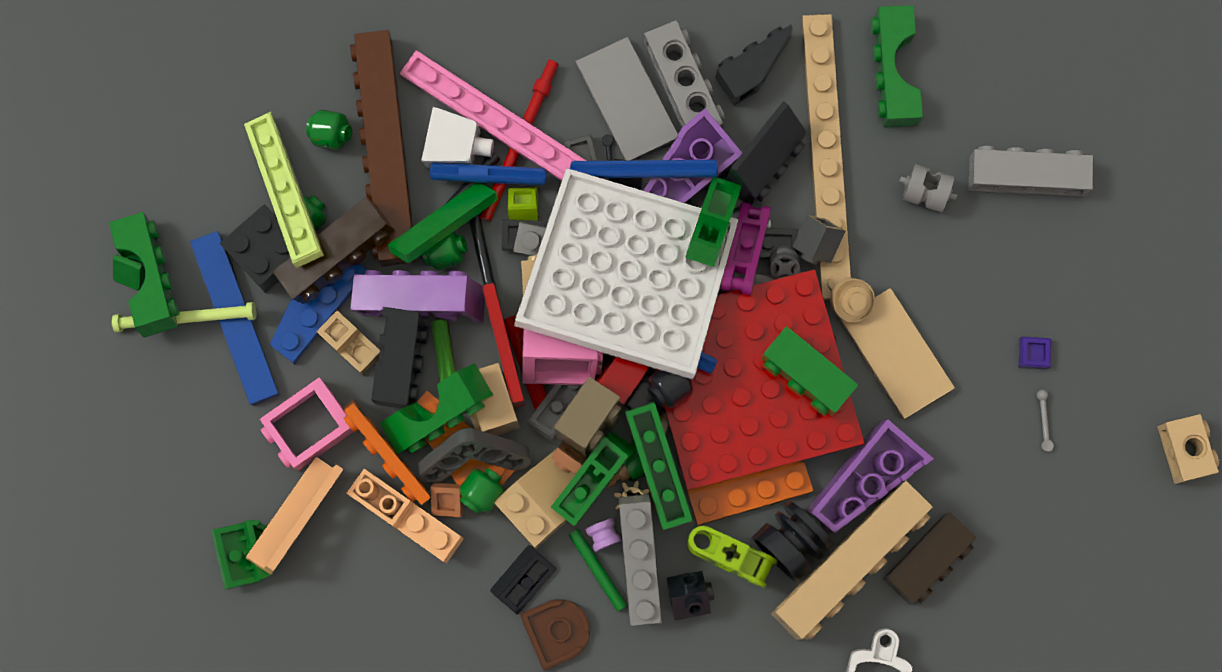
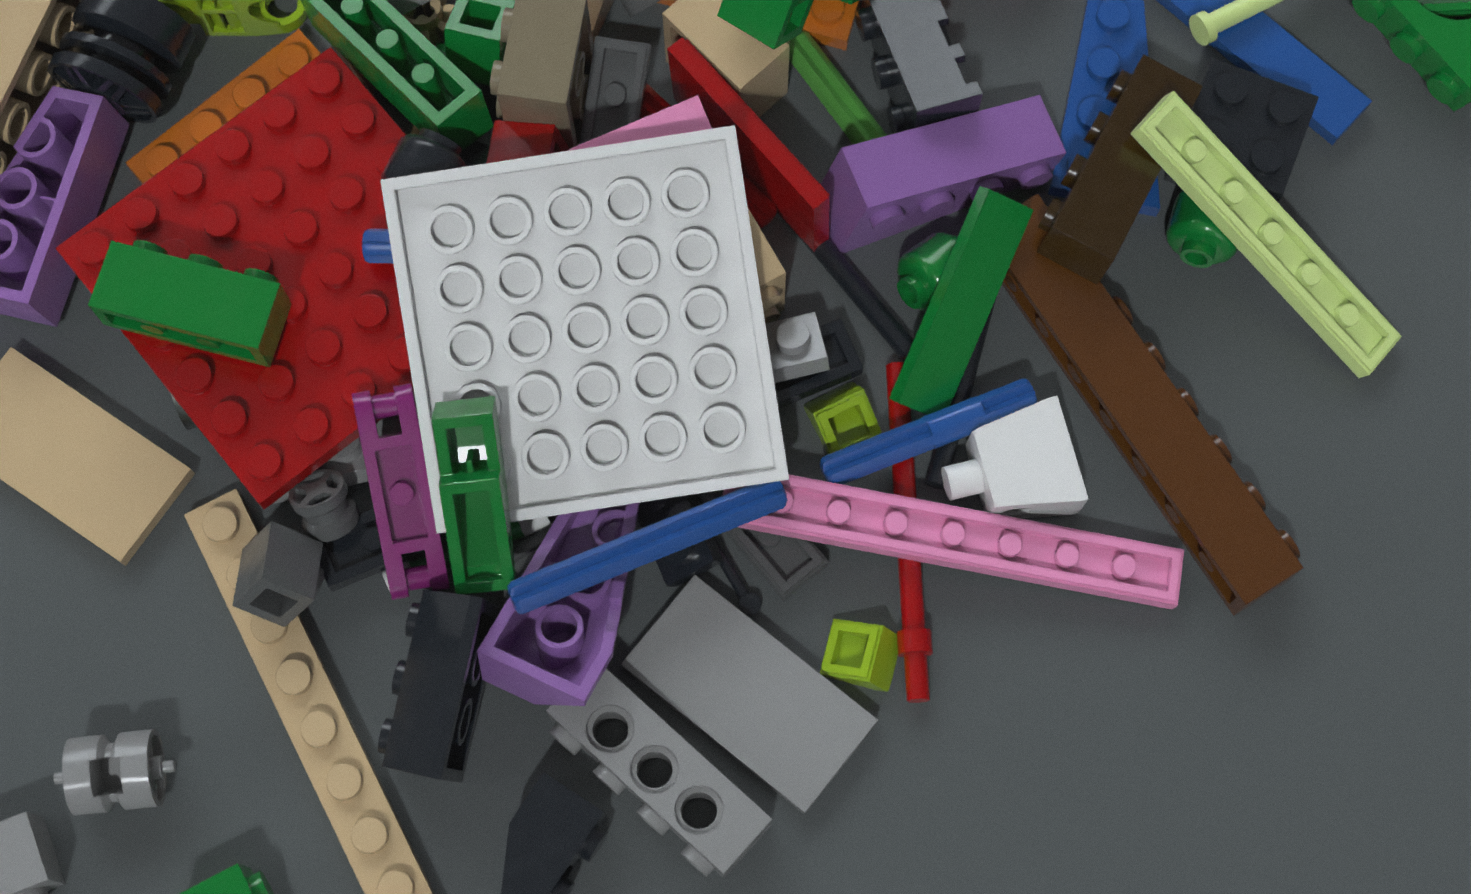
camera: 155 degrees right, 5 degrees down
(328, 129) = (1249, 387): green head -> none
(349, 342) = (1017, 64): tan slope -> none
(569, 95) = (860, 654): none -> lime slope
(852, 300) = (176, 498): tan plate -> none

